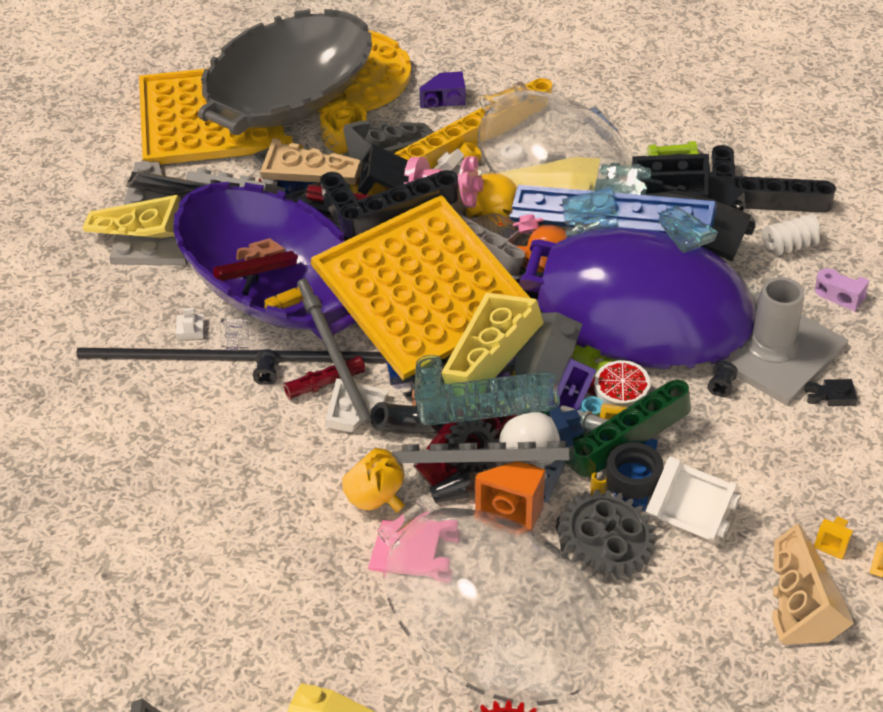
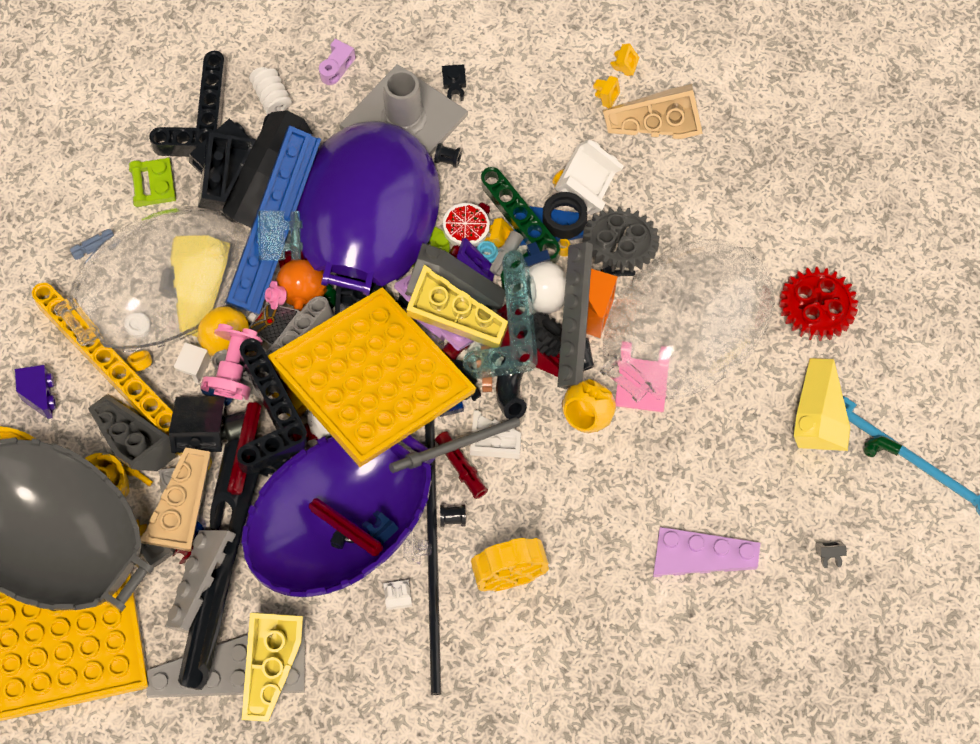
camera: 95 degrees left, 20 degrees up
(175, 588) = (692, 552): none -> lavender wing
(186, 391) = (509, 564): none -> yellow connector
(249, 289) = (381, 529): none -> dark blue tile
(259, 249) = (314, 529): nougat plate -> none
(285, 299) = (375, 499): yellow axle -> none
(449, 161) = (175, 376): white plate -> none
(631, 186) = (243, 214): clear light blue plate -> none
(686, 229) = (324, 151): clear light blue wing -> none

